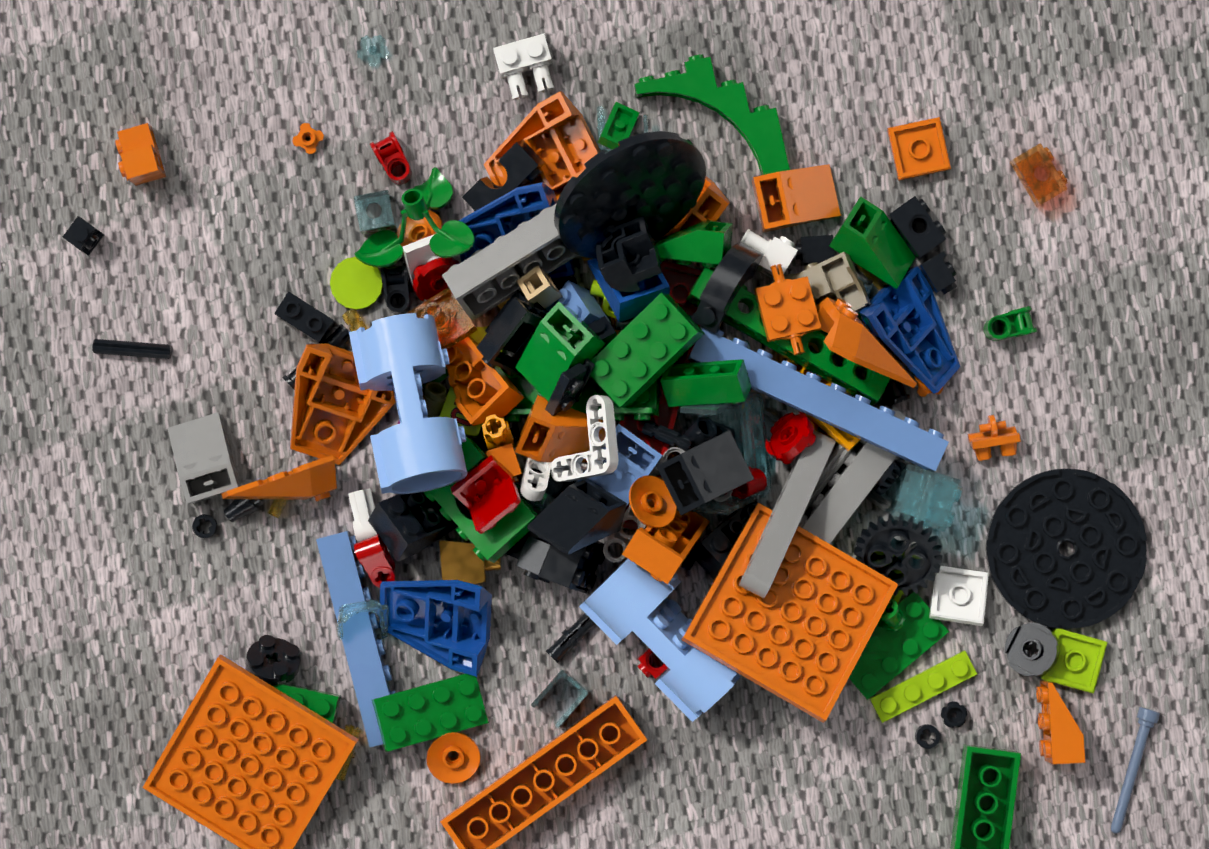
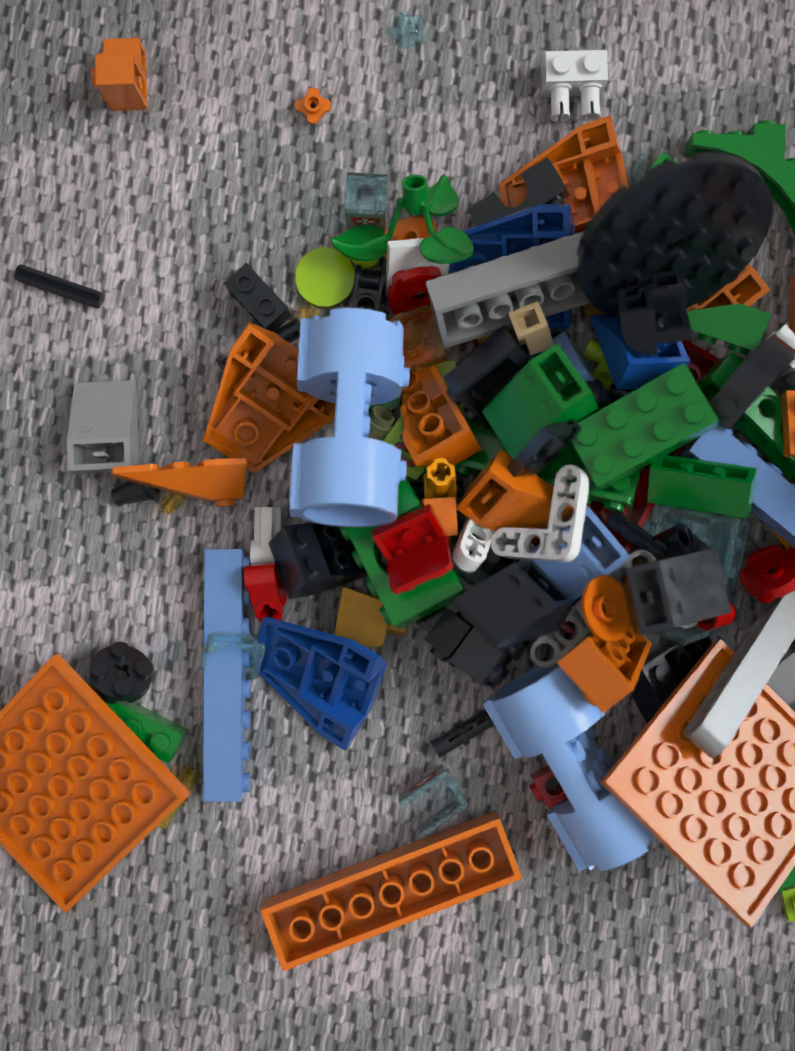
camera: 15 degrees right, 0 degrees up
(83, 235) = (36, 146): black brick -> none
(212, 529) = (93, 508): black bush -> none
(391, 155) = (400, 147): red piece -> none
(429, 711) = (281, 777): green plate -> none
(453, 769) = (291, 846): orange dish -> none

